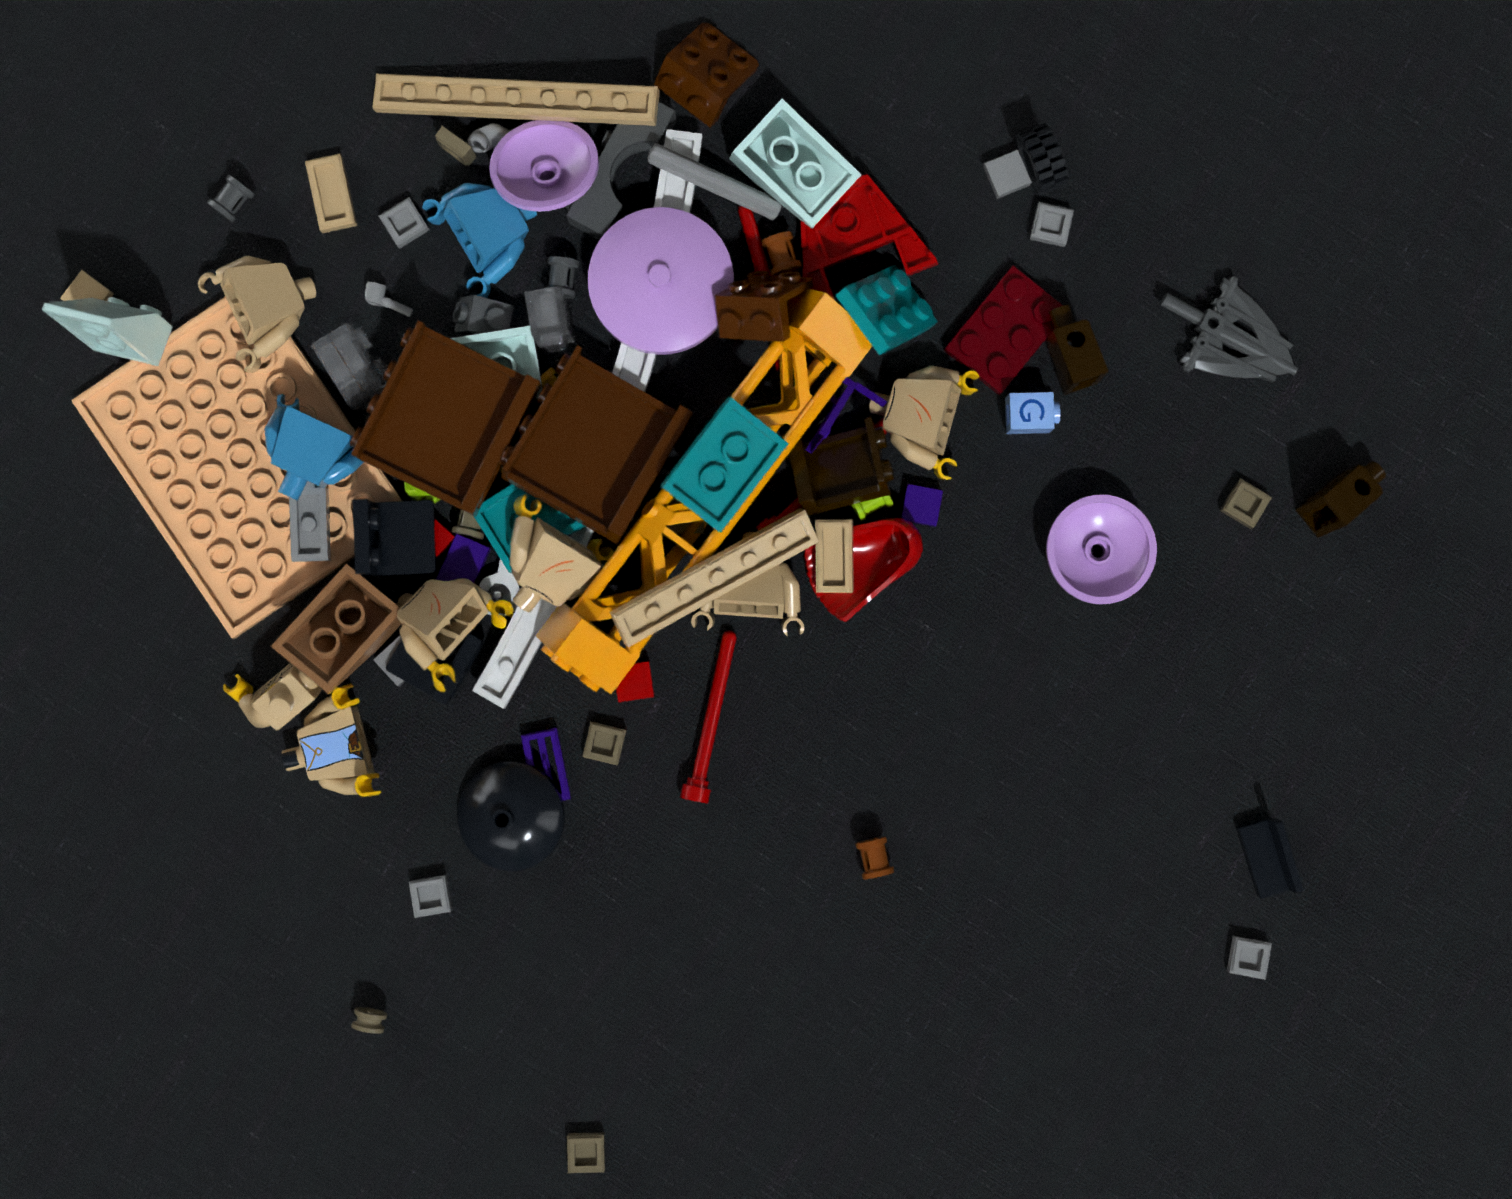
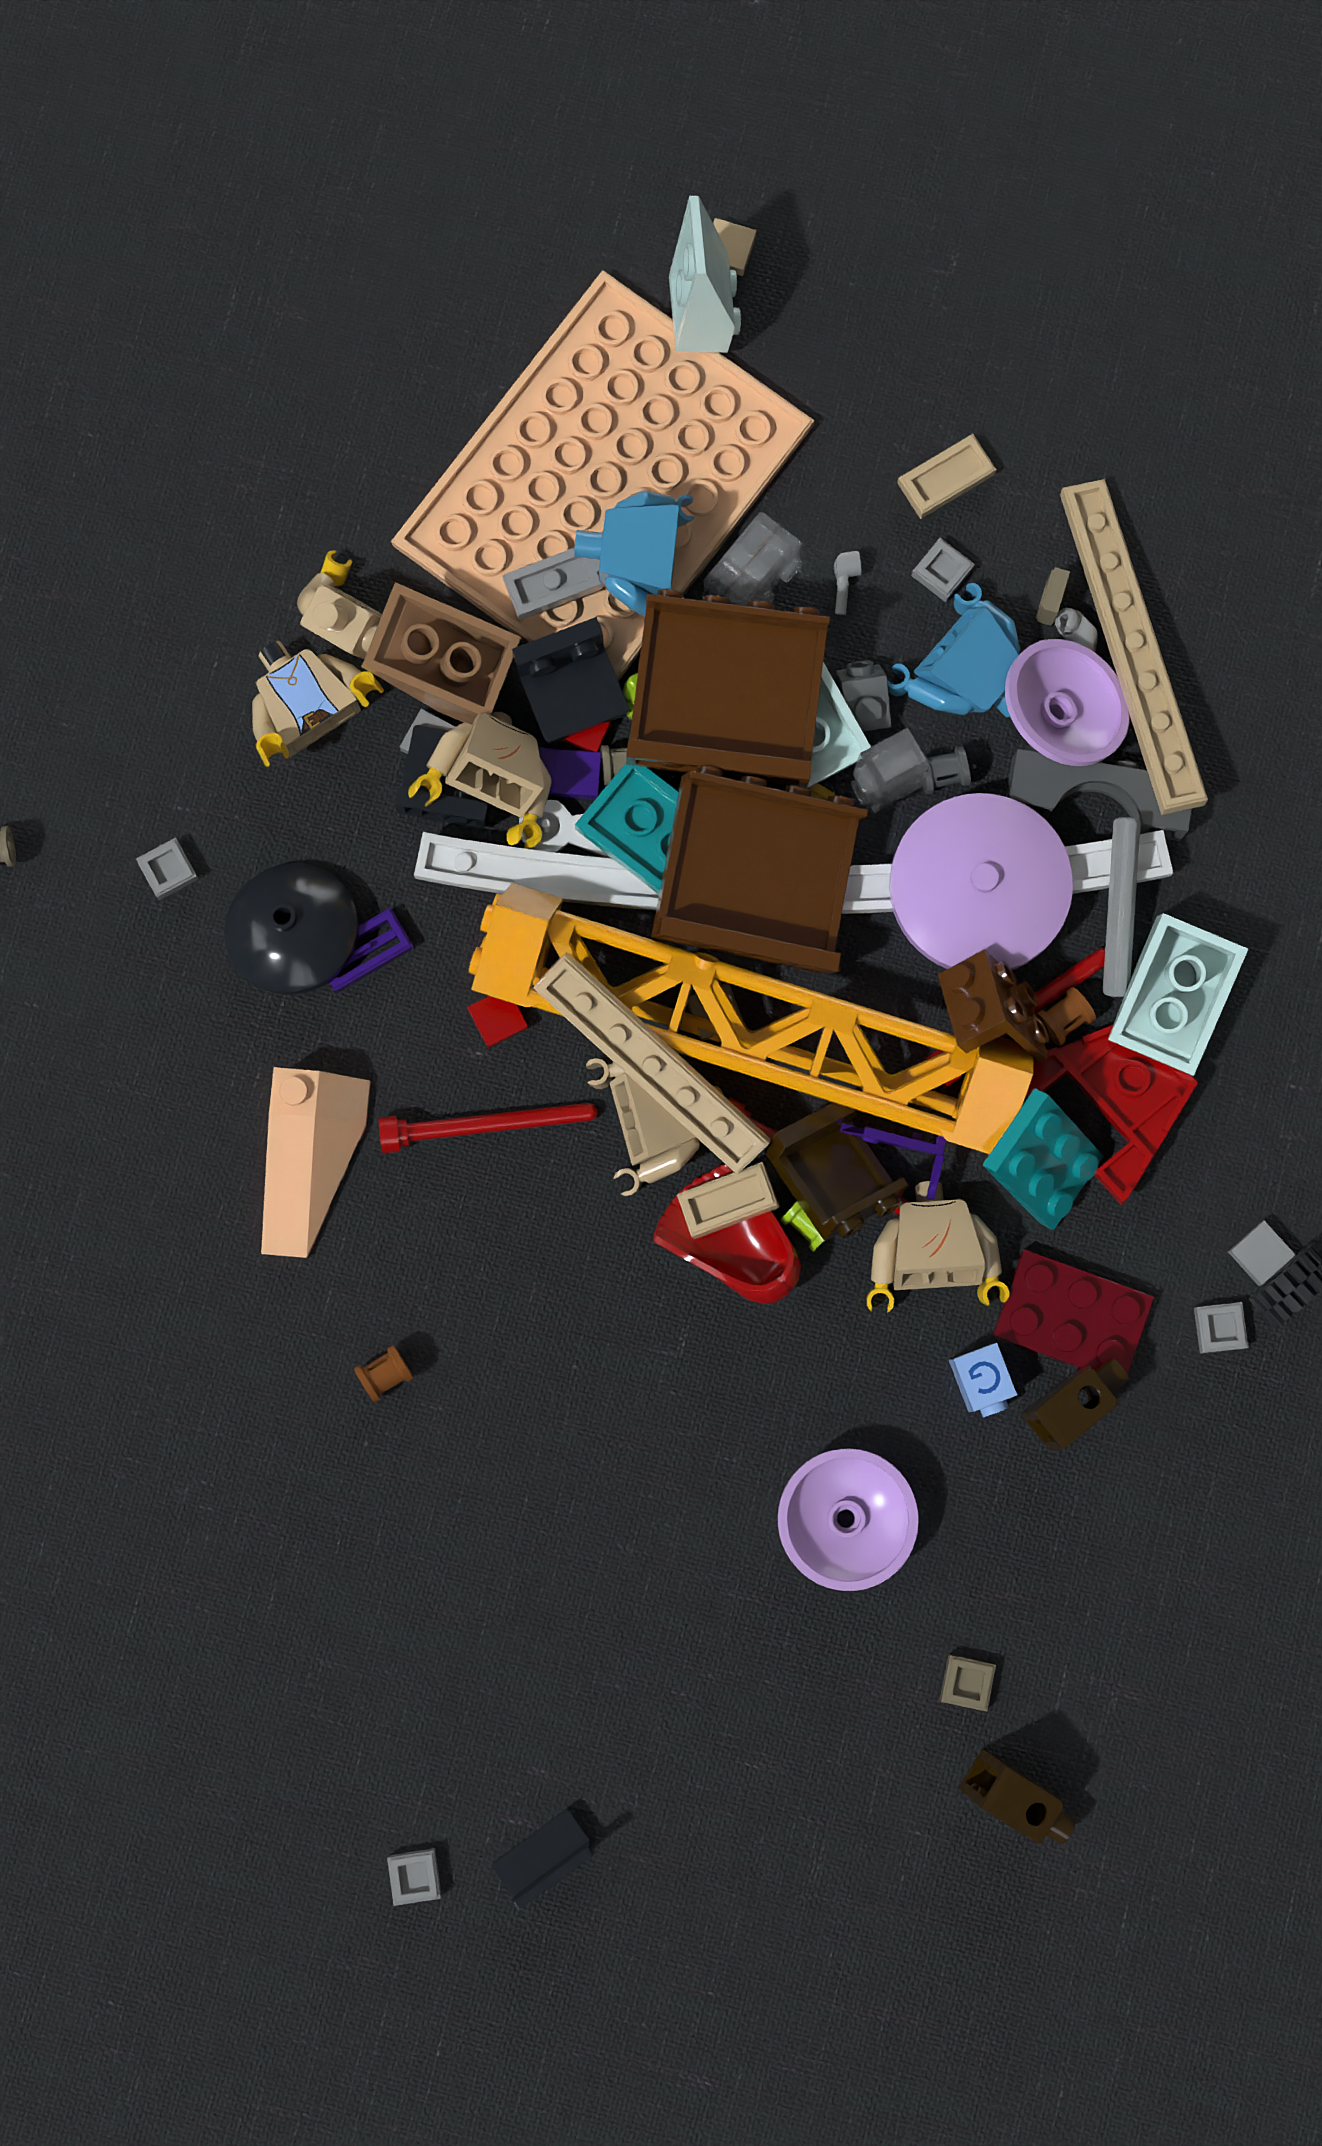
camera: 70 degrees right, 5 degrees down
(230, 198) = (898, 365): dark grey bush -> none
(263, 303) = (790, 442): tan torso -> none
(549, 561) = (603, 865): tan torso -> none
(604, 743) = (413, 1008): dark tan tile -> none
(684, 857) = (309, 1145): none -> light nougat wedge
(705, 72) = (1248, 853): reddish brown bracket -> none
(724, 464) = (787, 1026): teal plate -> none
(921, 505) = (826, 1286): dark purple tile -> none
(1265, 354) = (1158, 1645): dark grey bar -> none

